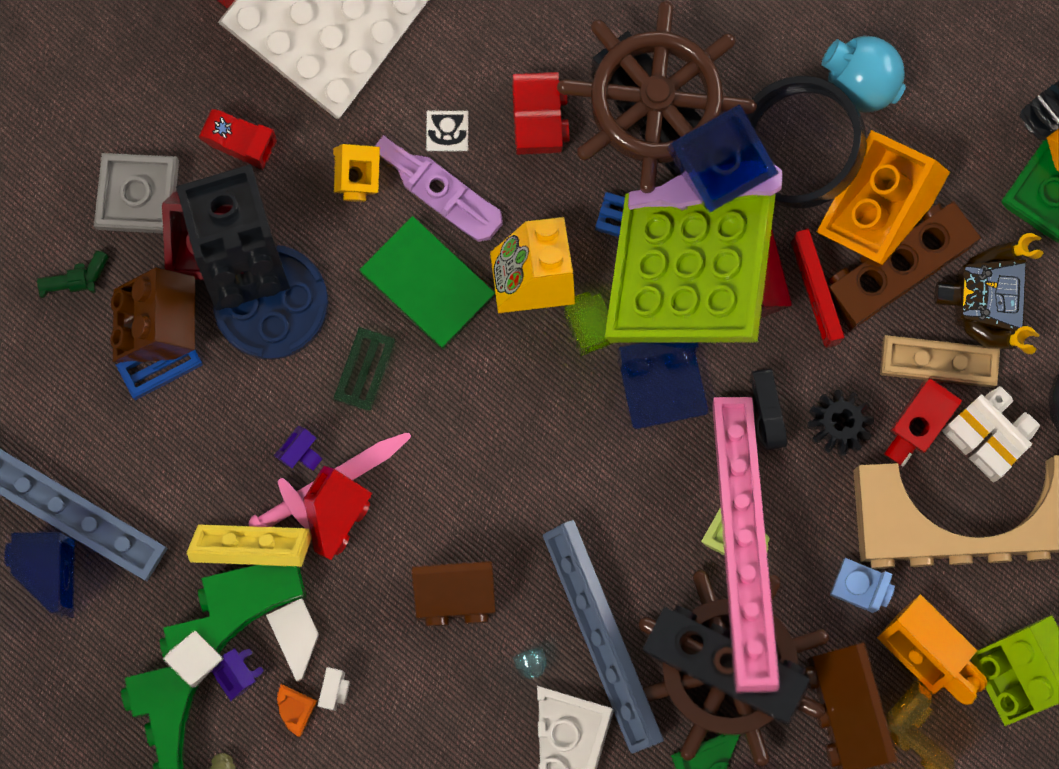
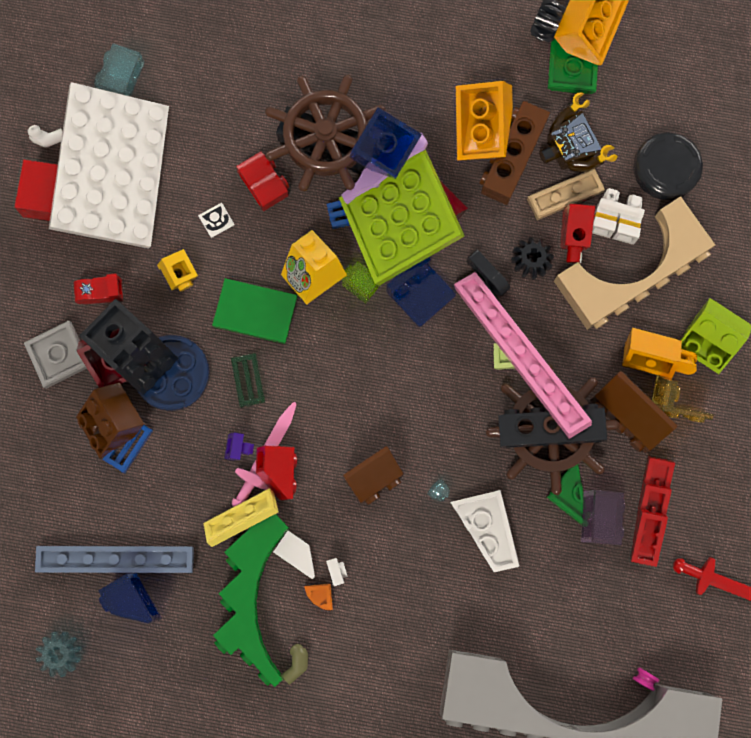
camera: 30 degrees left, 0 degrees up
(76, 279) = (51, 423): dark green piece -> none
(193, 659) = (246, 601): white slope -> none
(234, 674) = (274, 596): dark purple tile -> none
(454, 202) = (245, 256): lavender piece -> none
(602, 637) = (471, 453): sand blue tile -> none
(806, 84) = (415, 77): black piece -> none
(817, 288) = (475, 191): red tile -> none
(862, 586) = (597, 341): light blue bracket -> none
(866, 71) = (432, 57): medium azure brick -> none

